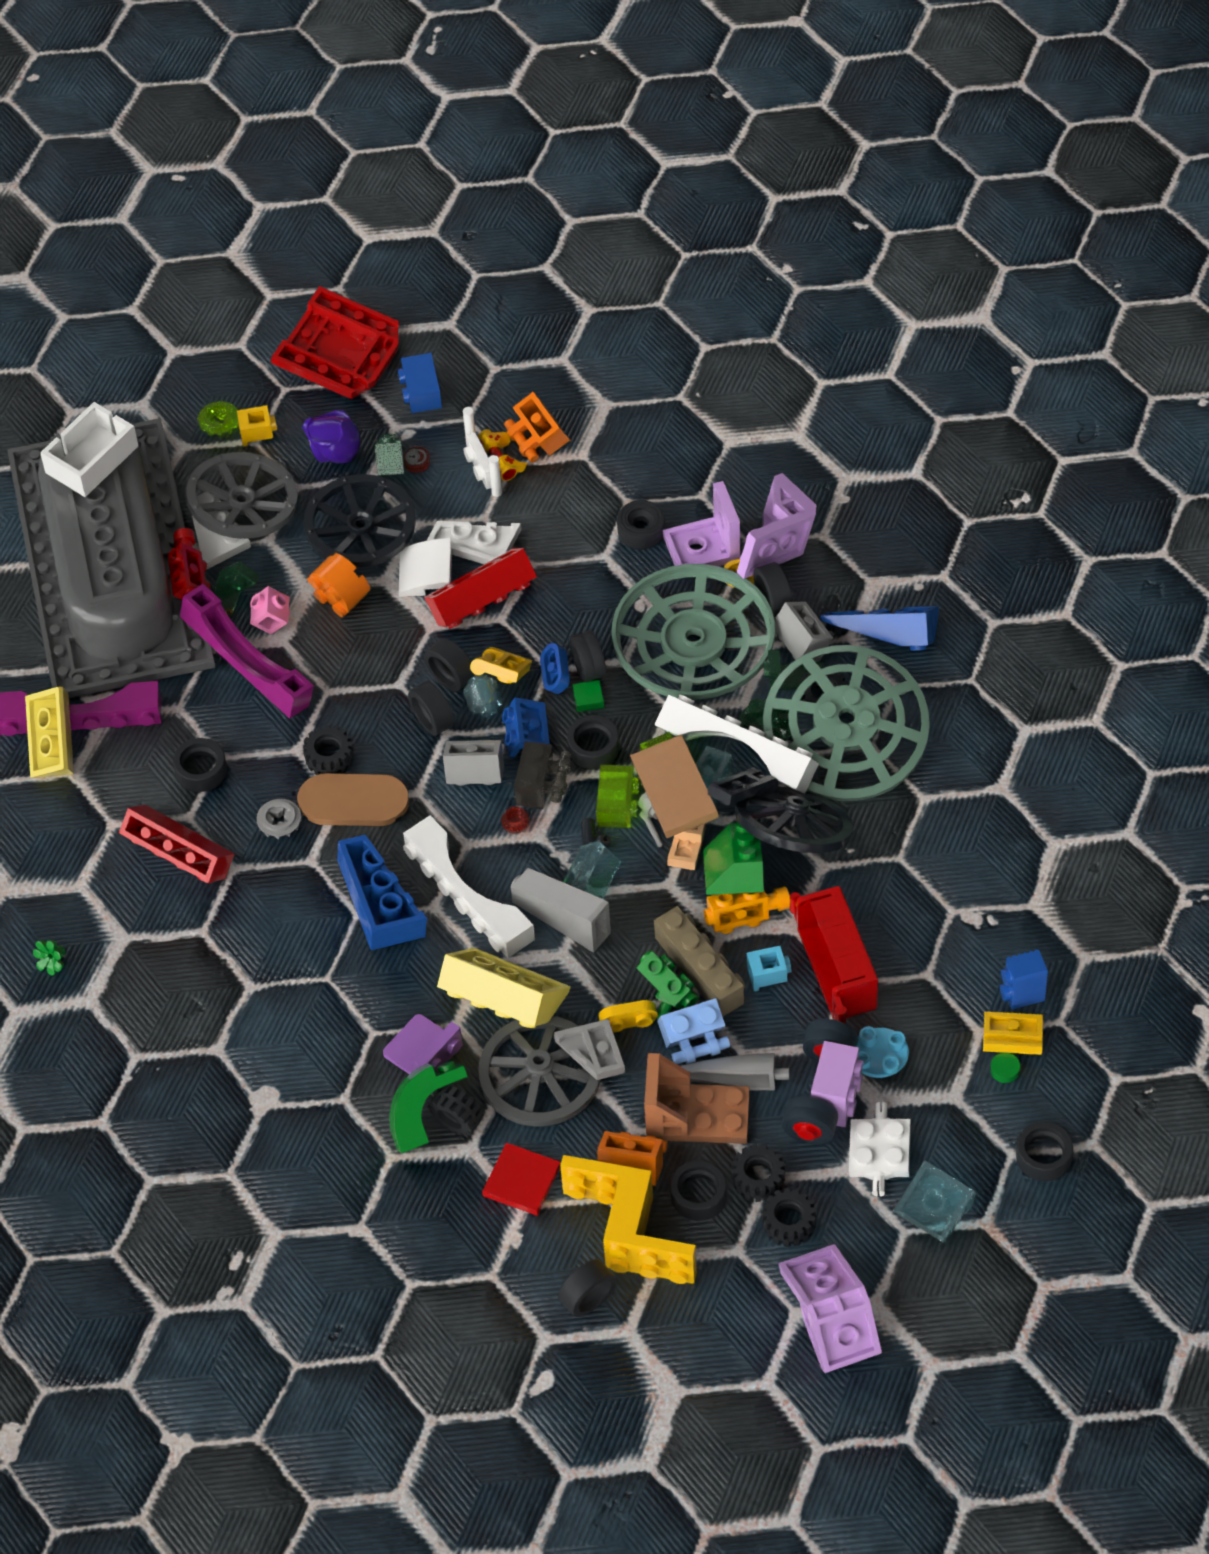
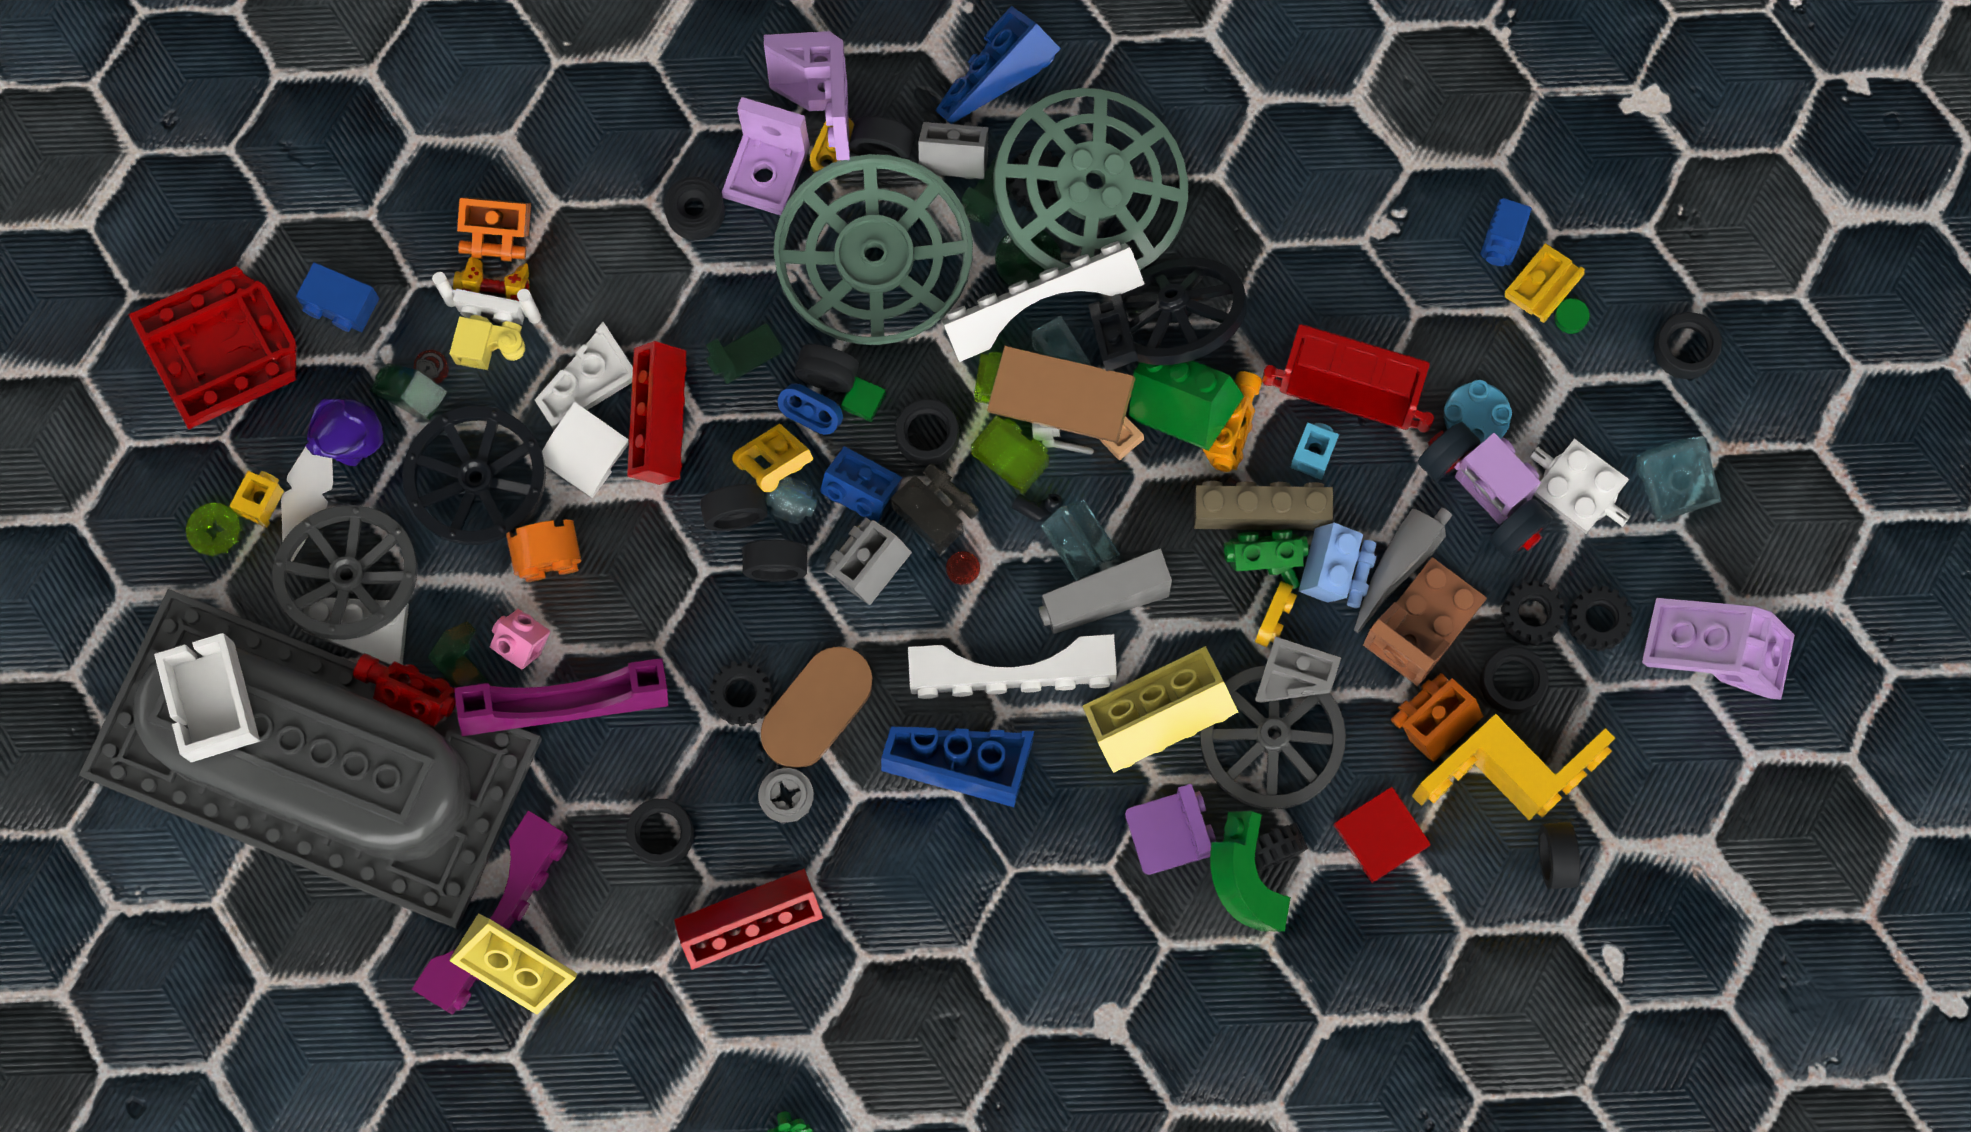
camera: 55 degrees left, 20 degrees up
(291, 447) = (309, 480): none -> white sticker
(452, 469) = (478, 338): none -> light yellow brick
(560, 611) = (742, 354): none -> clear green bracket

